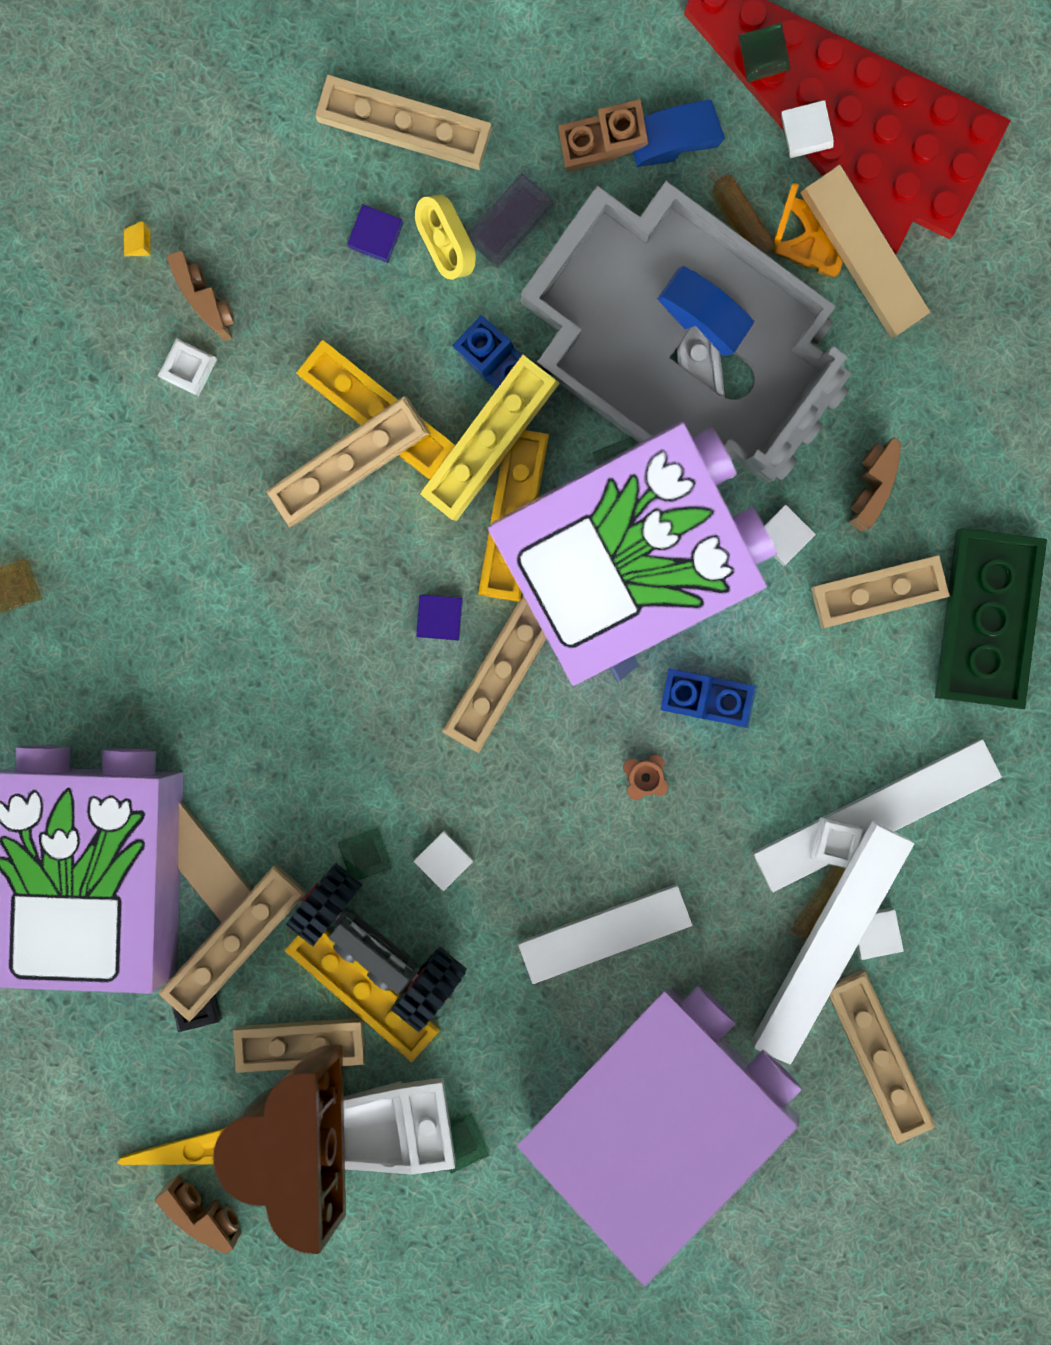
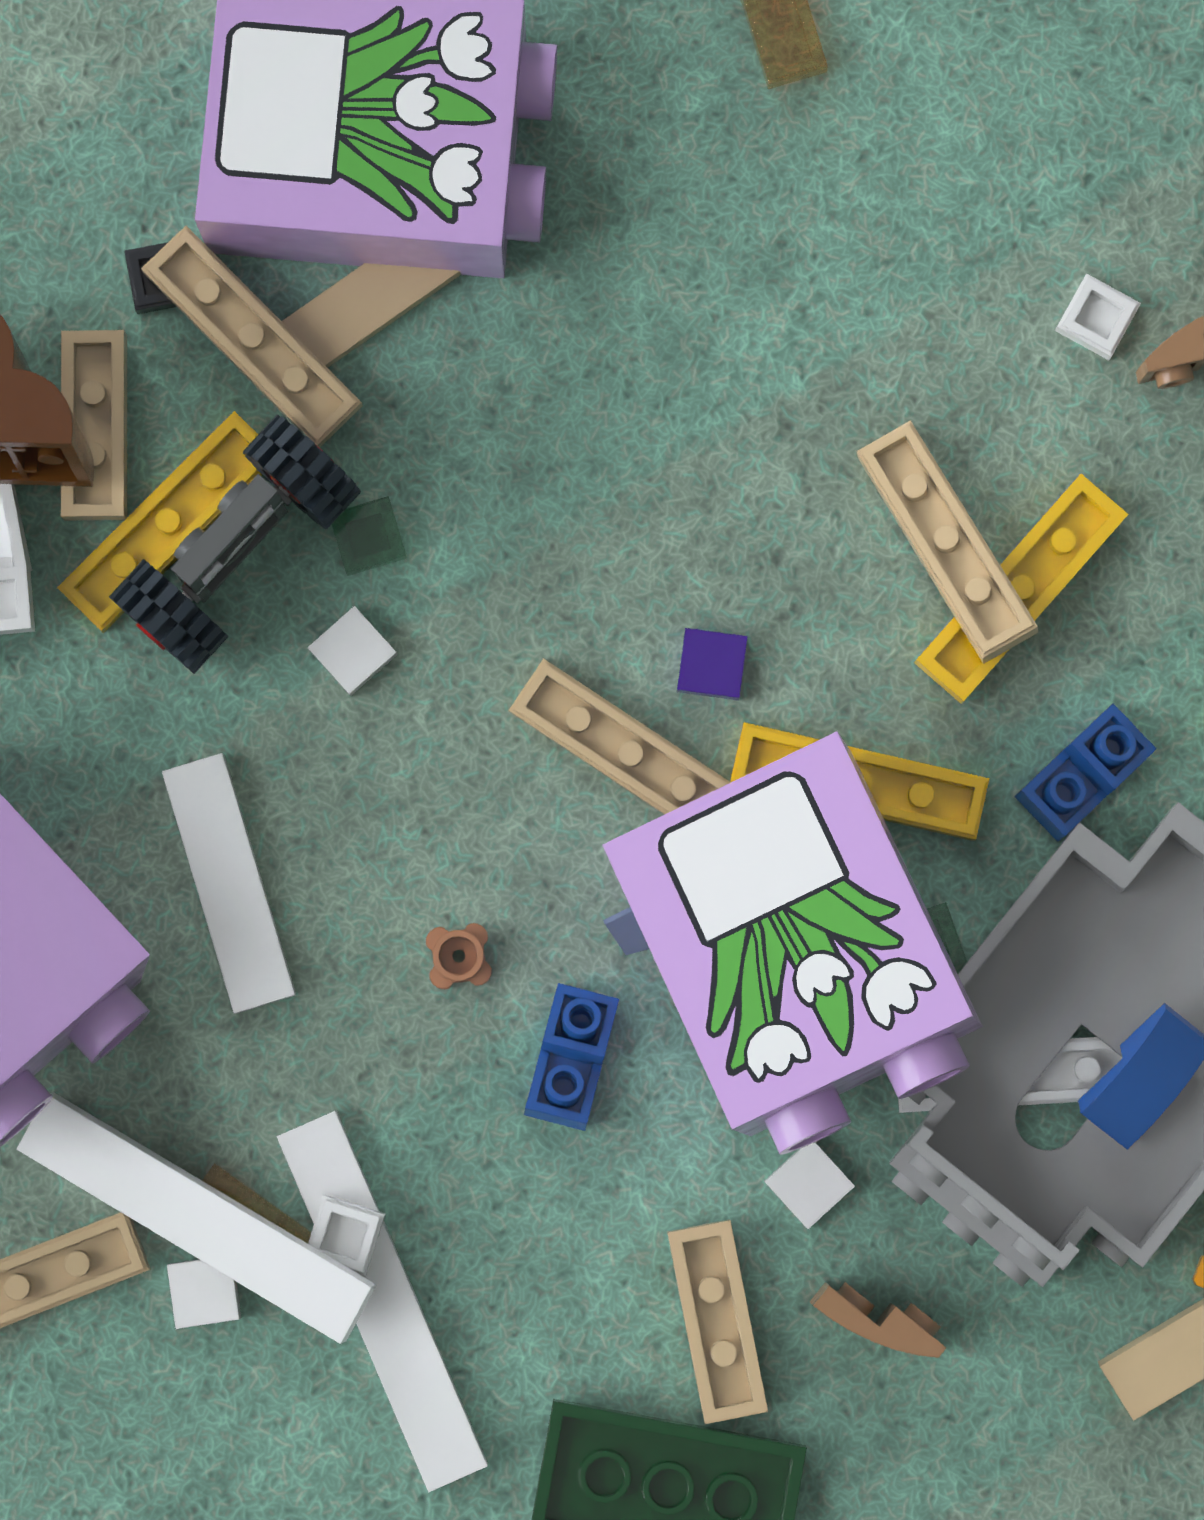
camera: 90 degrees right, 5 degrees down
(489, 438) = (972, 749): light yellow plate -> none

